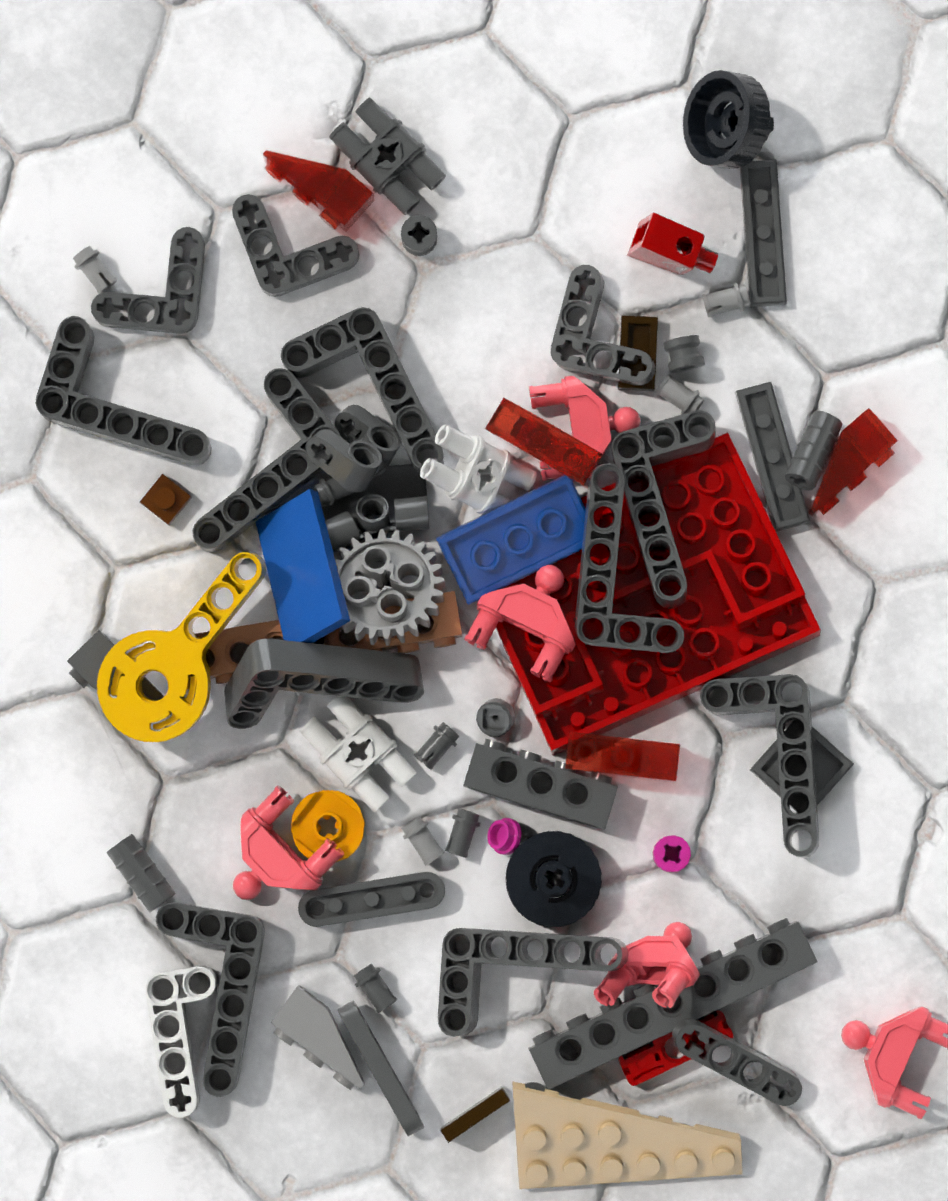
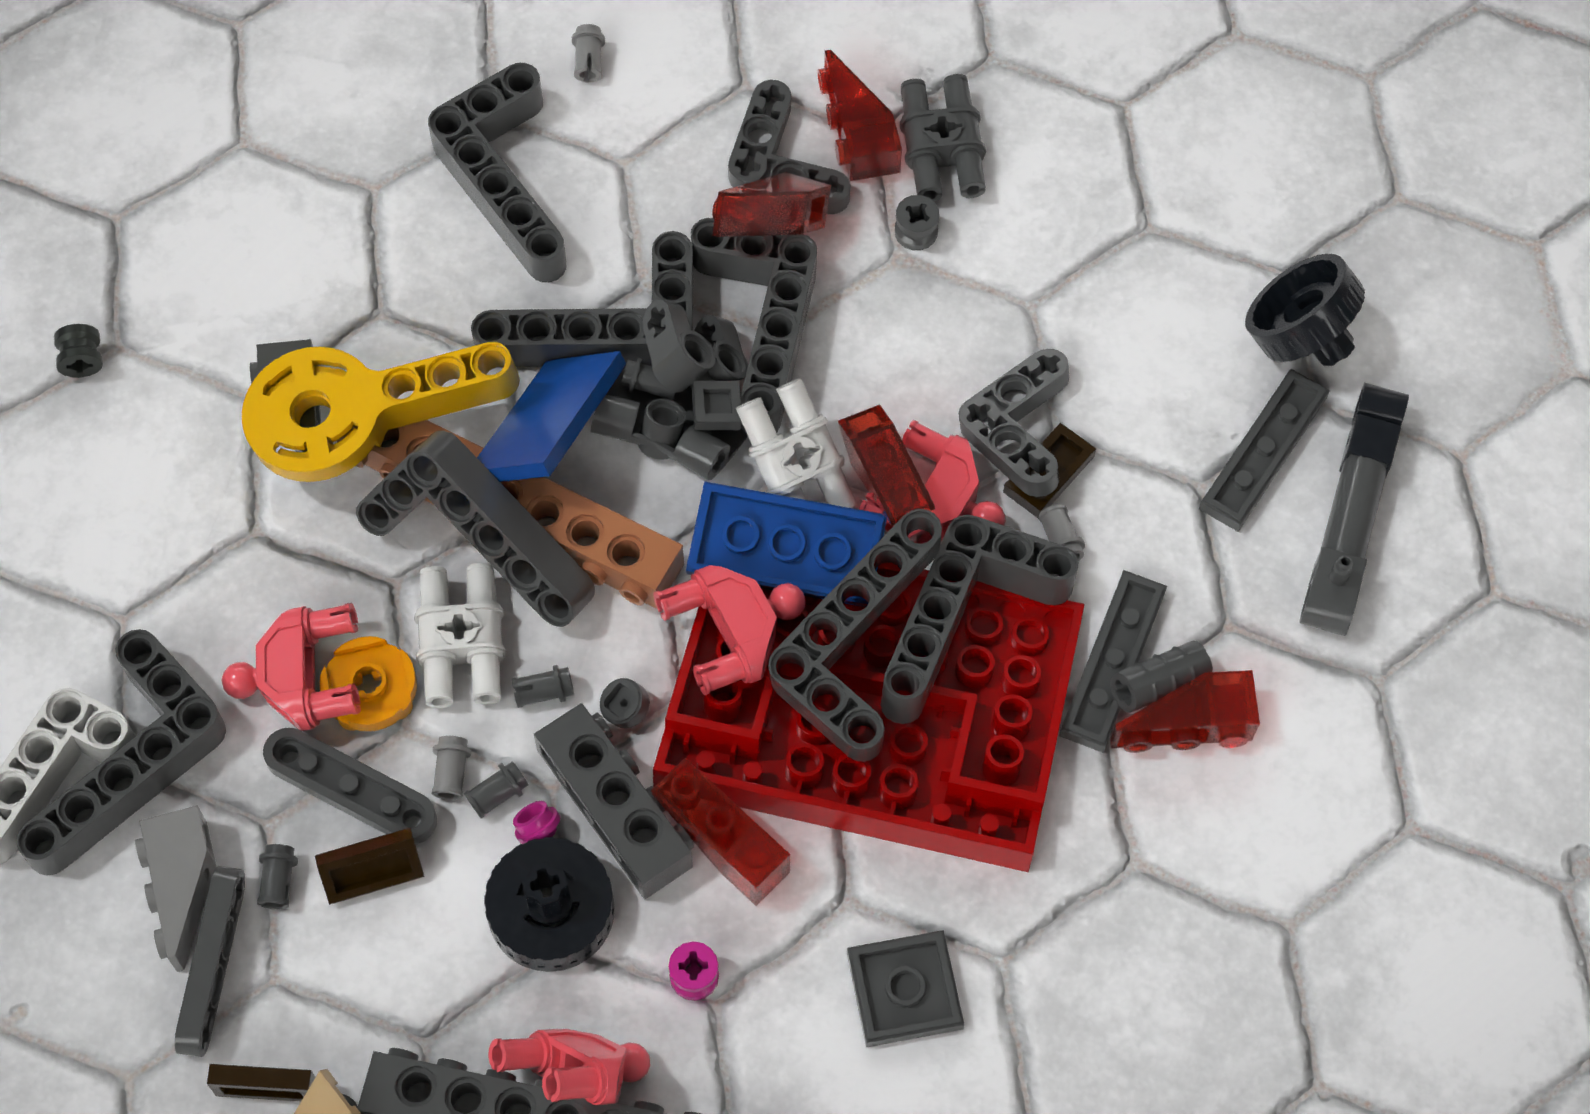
camera: 35 degrees right, 20 degrees down
(140, 873) = (151, 589): dark grey axle -> none
(162, 305) = (627, 125): dark grey beam -> none
(165, 499) = (479, 285): reddish brown plate -> none
(329, 305) = (771, 207): none -> clear red slope
(400, 478) = (715, 405): none -> dark grey tile
(400, 560) = (617, 488): light grey gear -> none
(426, 939) = (369, 866): none -> dark brown tile
(516, 955) = (444, 943): dark grey beam -> none
(657, 243) = (1159, 386): red torso -> none
(684, 353) = (1096, 497): dark grey wheel -> none
(726, 300) = (1180, 481): light grey pin -> none
(787, 748) = (901, 945): dark grey beam -> none
(836, 196) = (1363, 471): none -> dark grey piece

